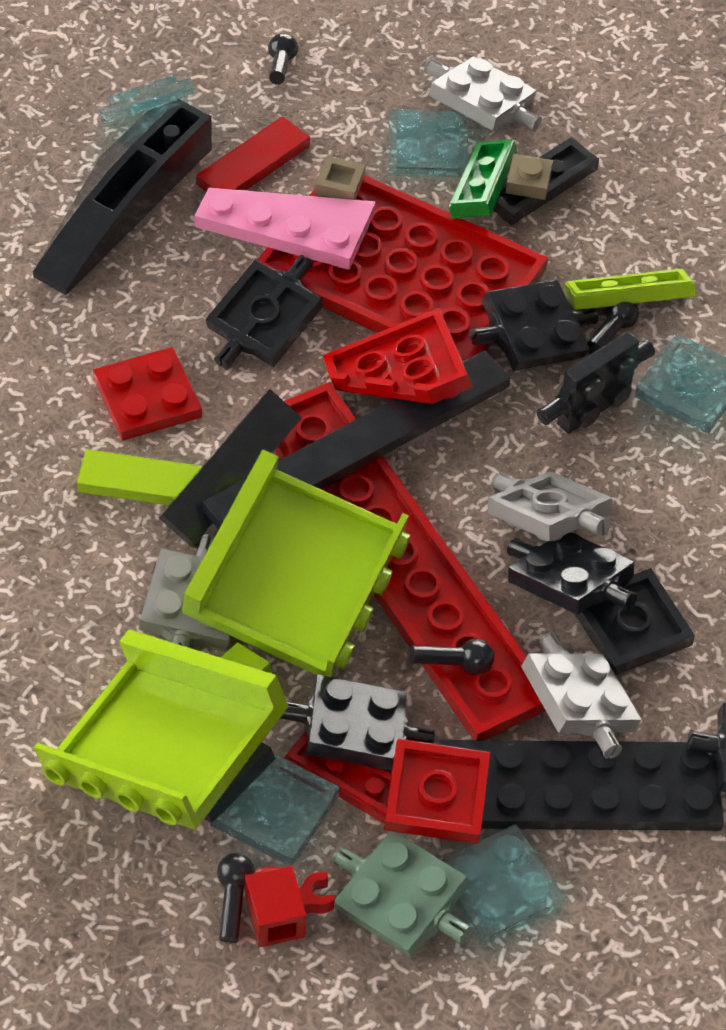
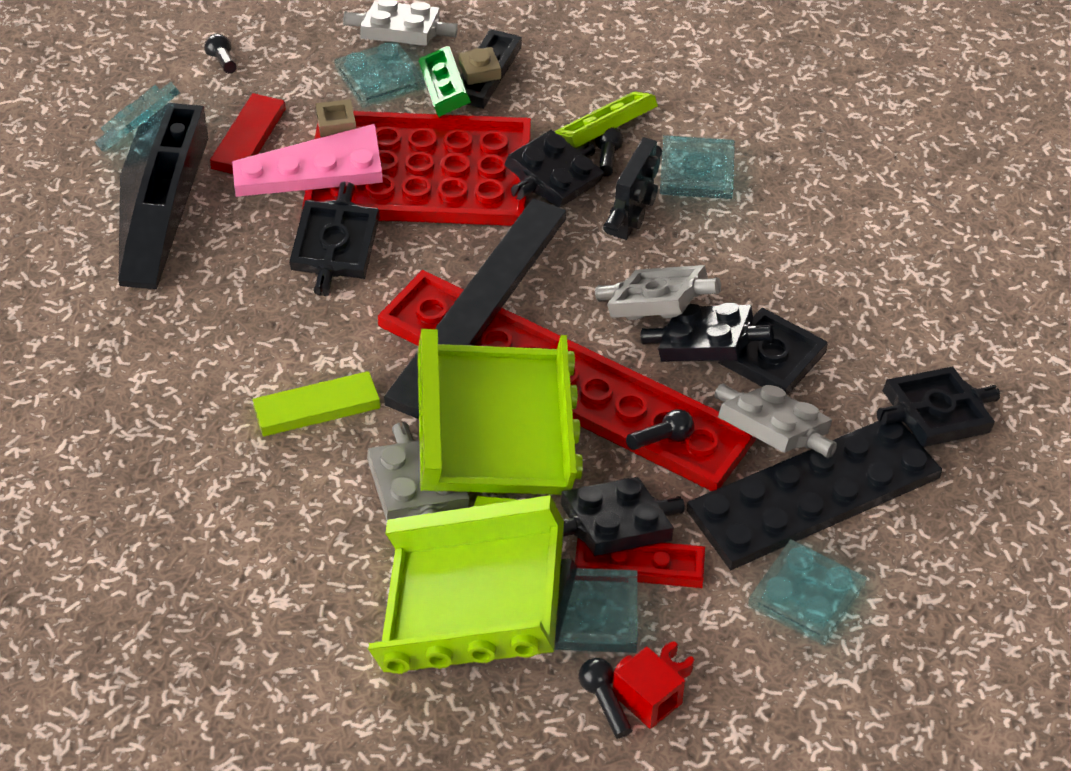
camera: 25 degrees left, 5 degrees down
(147, 393) = (274, 337): red plate -> none
(232, 462) = (385, 361): black tile -> none
(402, 362) = (476, 228): red plate -> none
(402, 894) = (741, 631): sand green plate -> none
(437, 791) = (722, 537): red plate -> none

